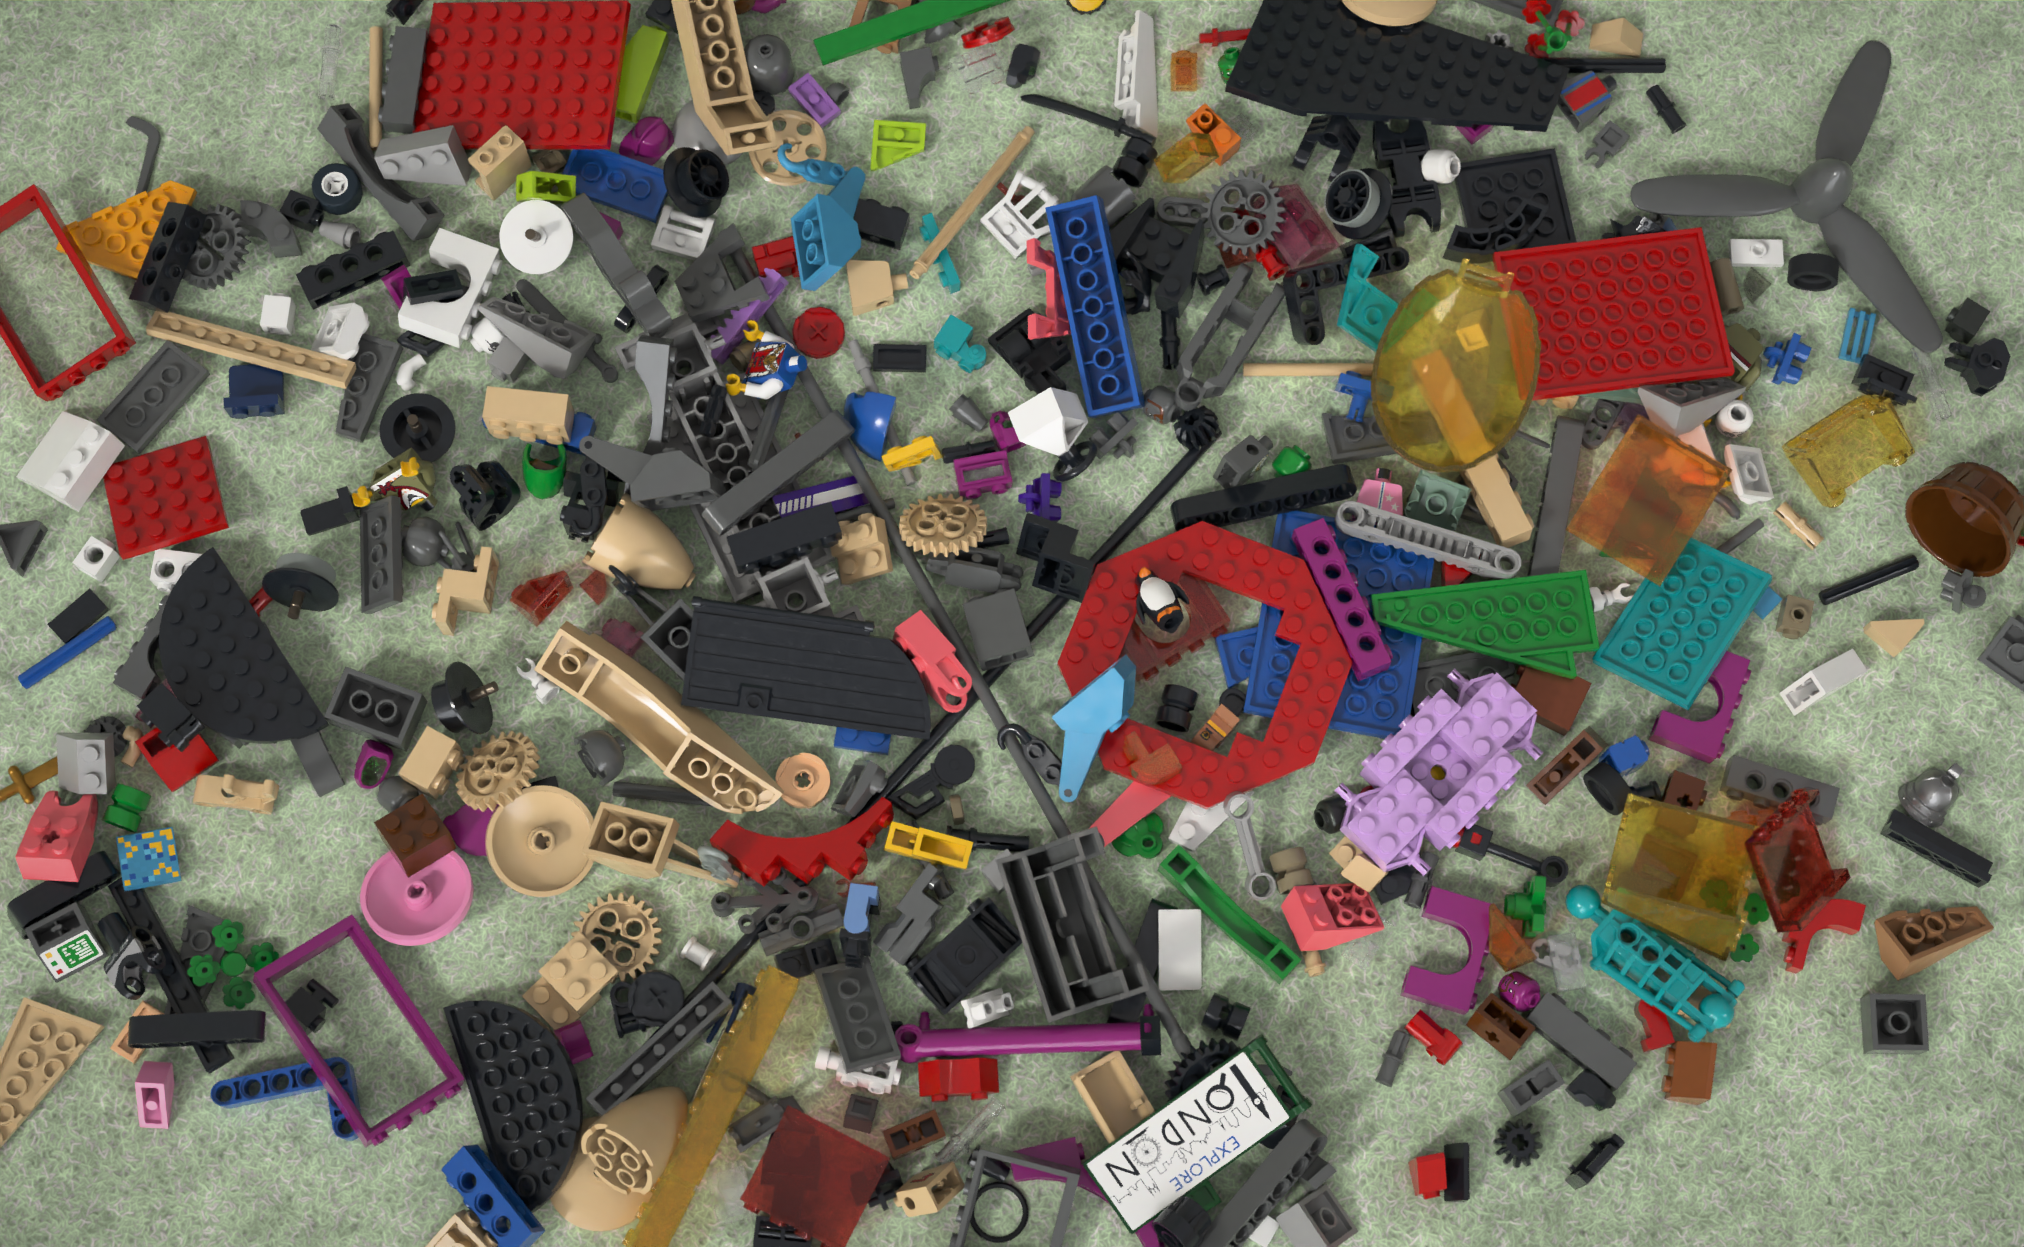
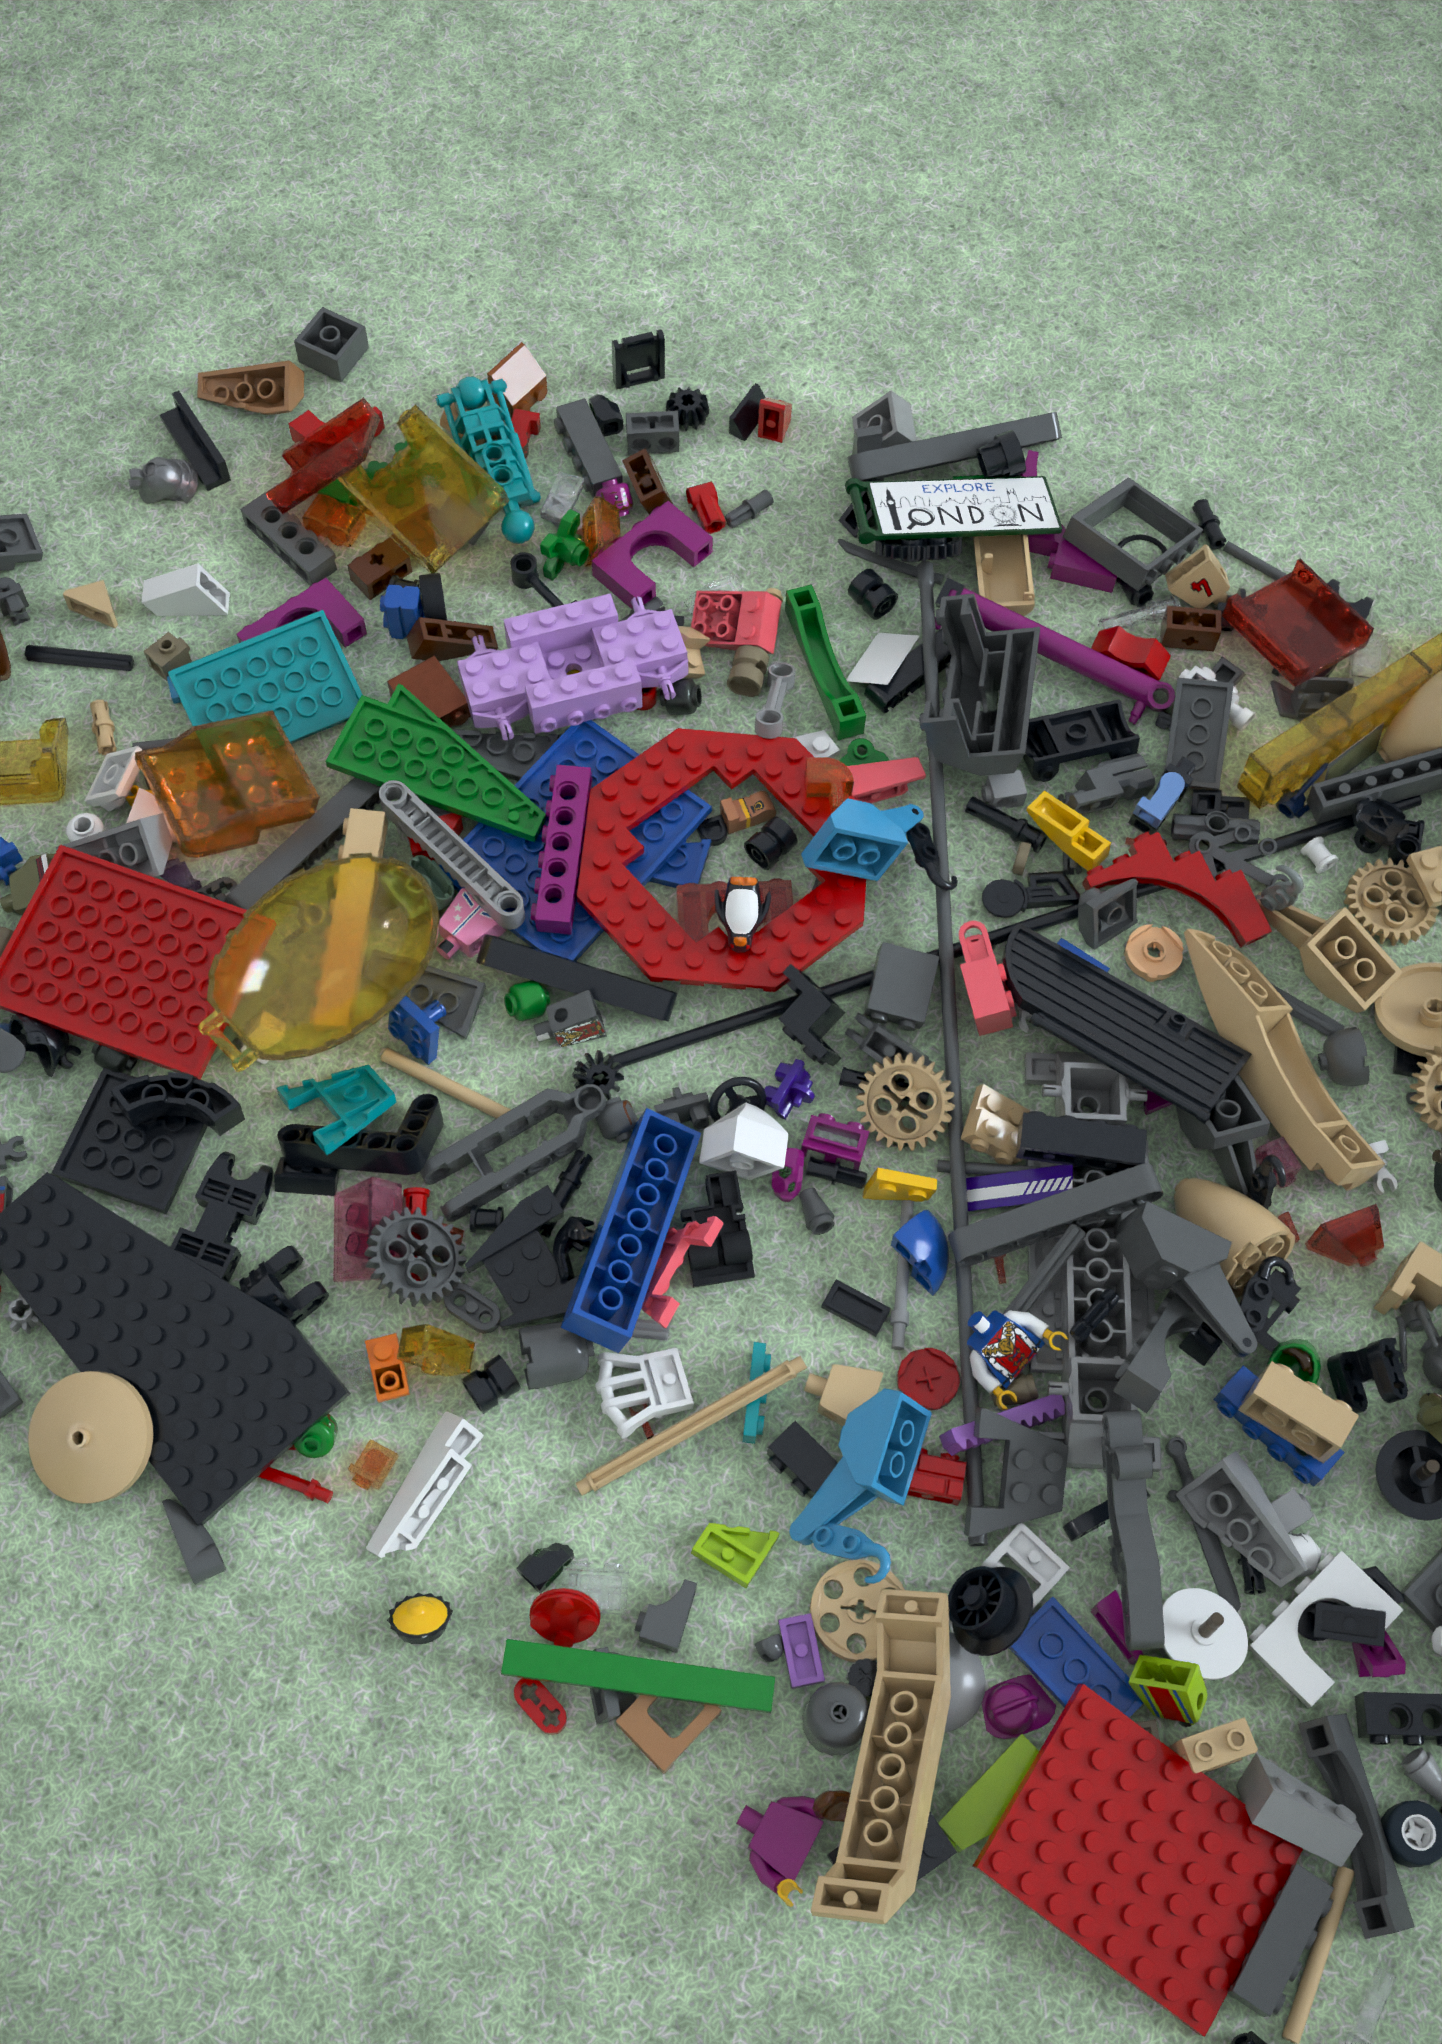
camera: 150 degrees left, 10 degrees down
(406, 372) = (1404, 1565): white arm -> none
(953, 343) = (794, 1289): teal brick -> none
(987, 1007) = (1080, 692): white hips -> none
(1119, 127) = (484, 1432): black sword -> none
(1358, 202) = (288, 1209): black piece -> none
(1440, 166) = (180, 1208): white head -> none
(1607, 597) = (310, 751): white piece -> none

